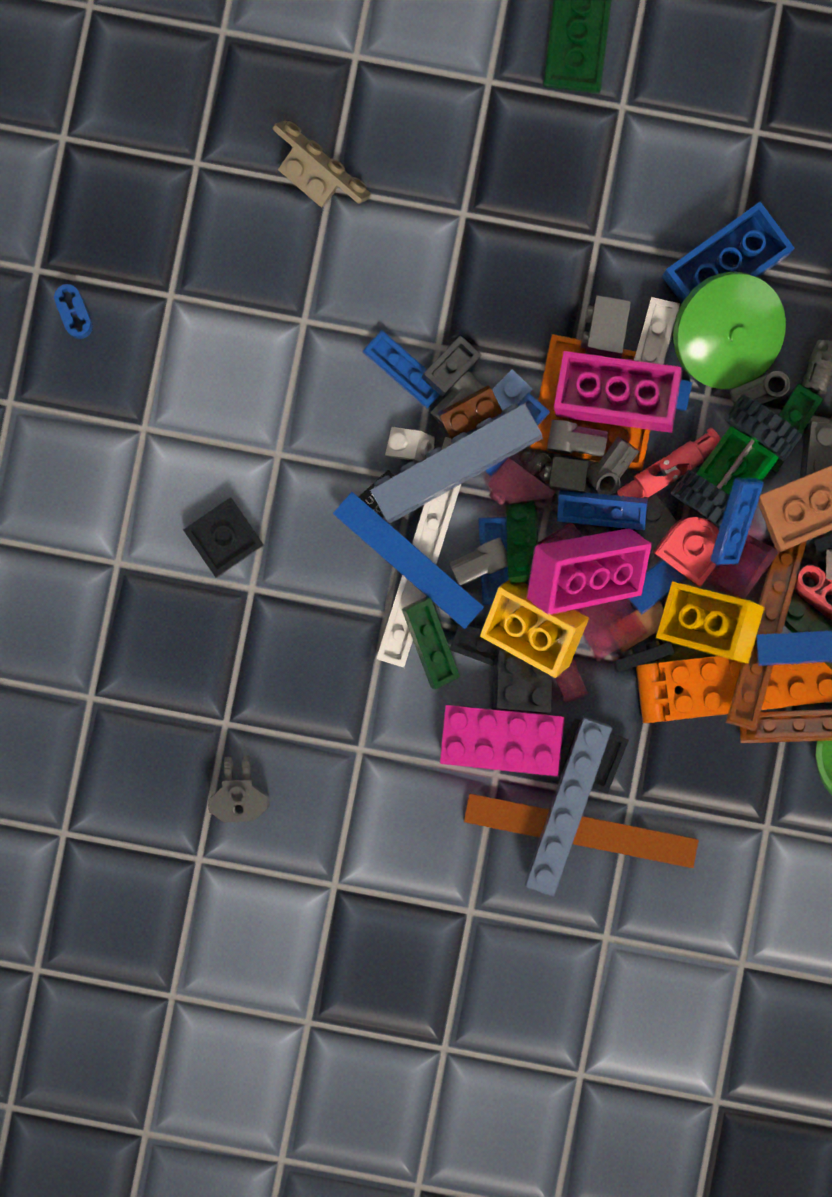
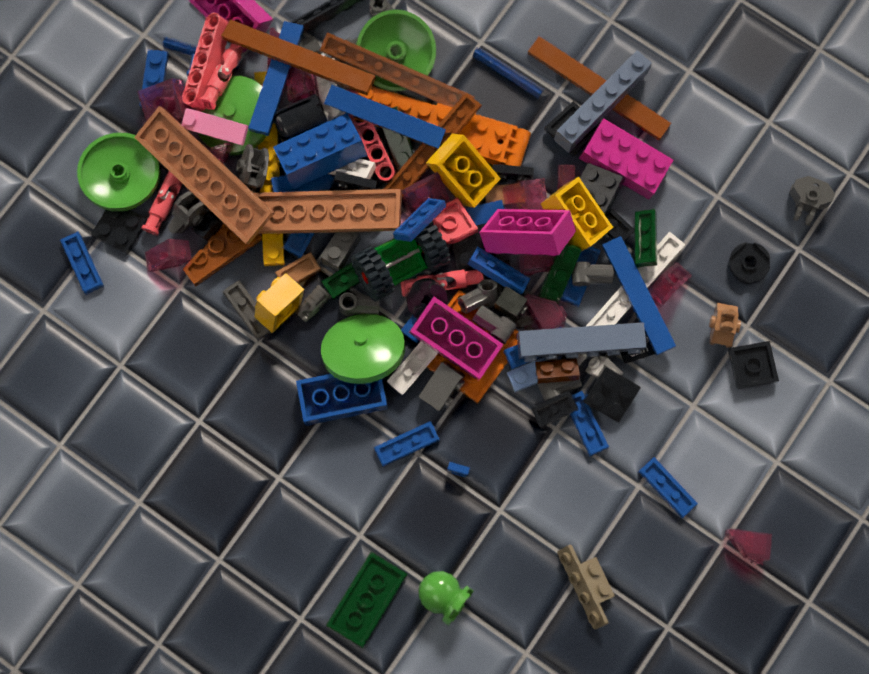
camera: 155 degrees left, 10 degrees down
(67, 313) = (800, 561): blue beam -> none
(135, 306) = (751, 544): none -> clear pink slope
(267, 334) = (668, 487): none -> blue tile
(275, 658) = (749, 274): none -> black plate
(282, 571) = (724, 324): none -> medium nougat hinge
(374, 598) = (669, 283): none -> clear pink slope
(388, 416) = (611, 394): none -> black plate
(488, 71) = (442, 595): none -> bright green tile
(538, 236) = (457, 469): none -> blue tile
(617, 243) = (406, 444): none -> blue tile
(682, 448) = (419, 289): none -> black plate
(712, 797) = (510, 74): none -> blue axle

